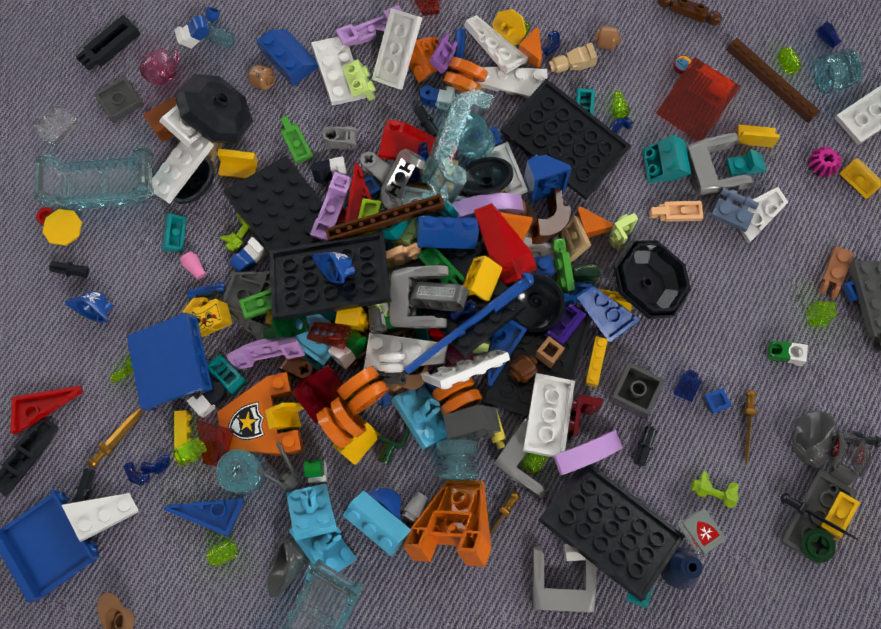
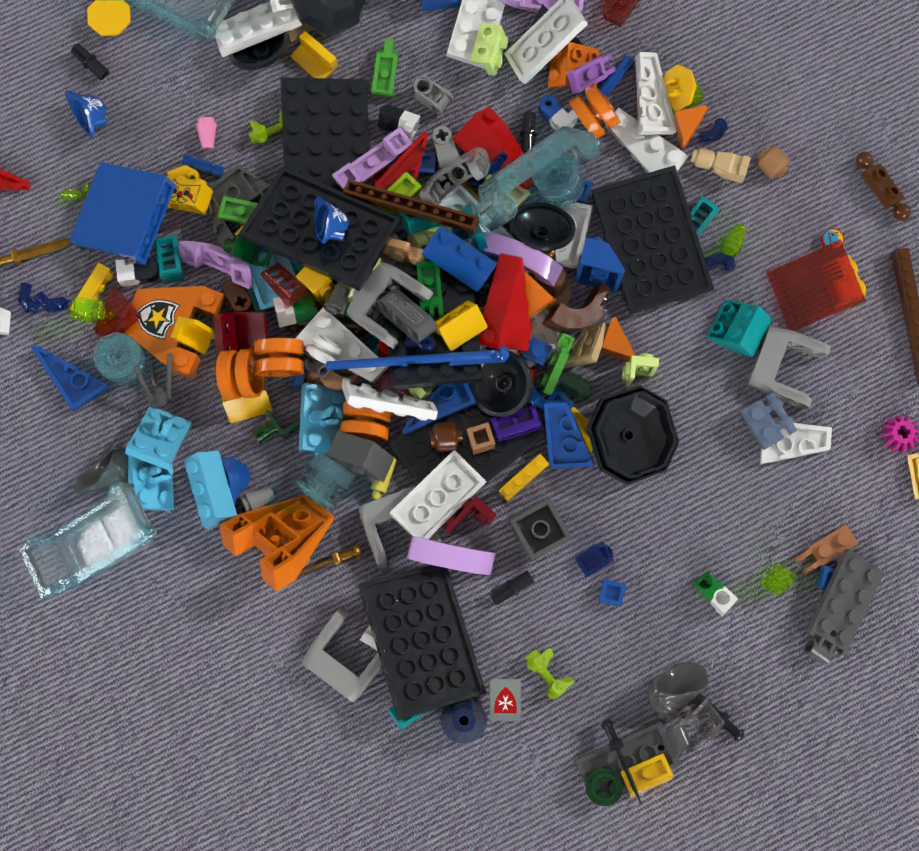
camera: 30 degrees right, 5 degrees up
(173, 233) = (209, 88): teal slope -> none
(222, 552) = (57, 422): clear neon green brick -> none
(248, 256) = (263, 158): leg -> none
(315, 470) = (189, 404): green leg -> none
(534, 462) = (396, 533): clear neon green cone -> none
(678, 211) = (713, 386): light nougat hinge -> none
(747, 164) = (820, 385): teal slope -> none
(749, 411) = (637, 623): pearl gold sword -> none
(757, 136) = (851, 362): yellow panel -> none

